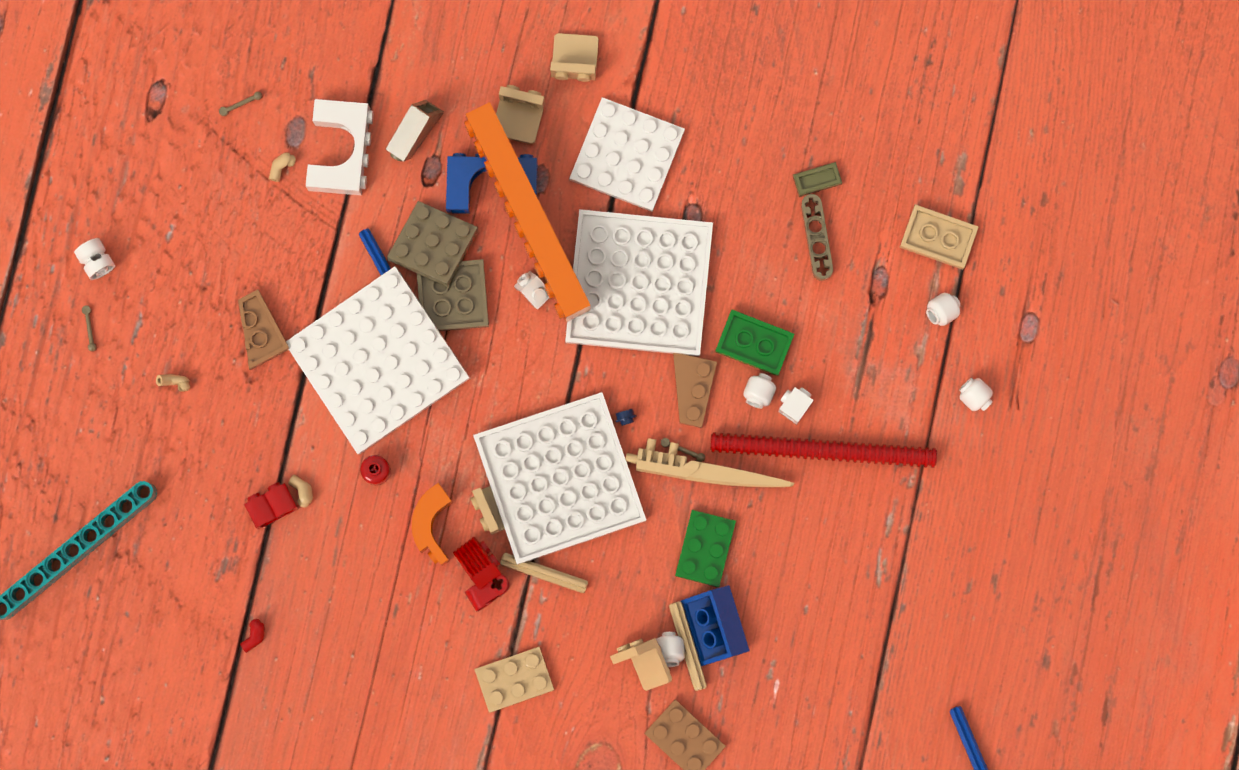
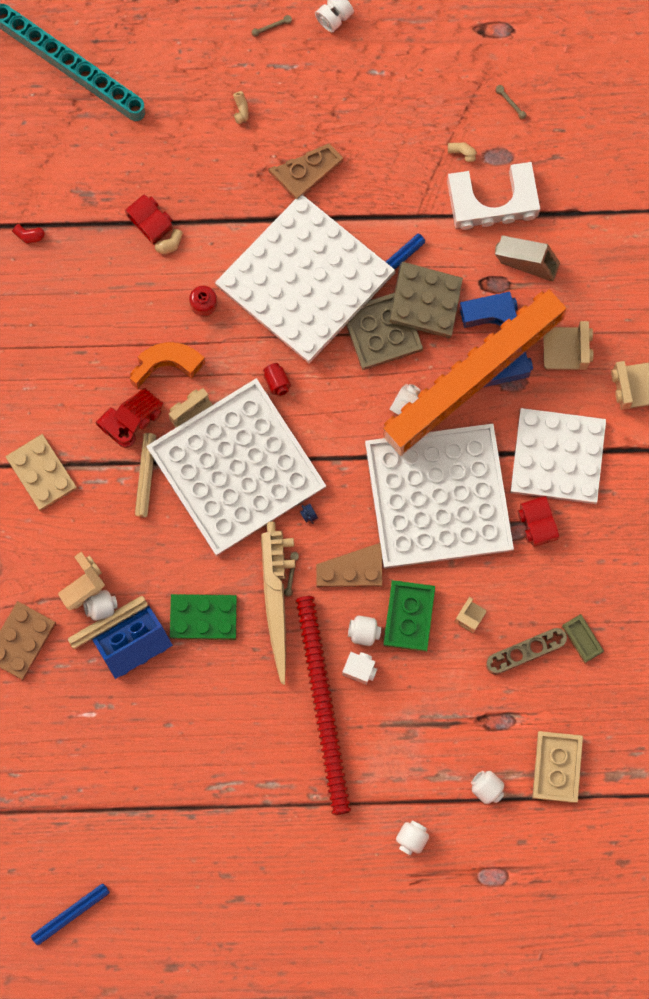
camera: 70 degrees right, 5 degrees down
(477, 415) = (276, 379): none -> red brick
(690, 190) = (539, 521): none -> red brick
(768, 282) = (470, 616): none -> tan panel

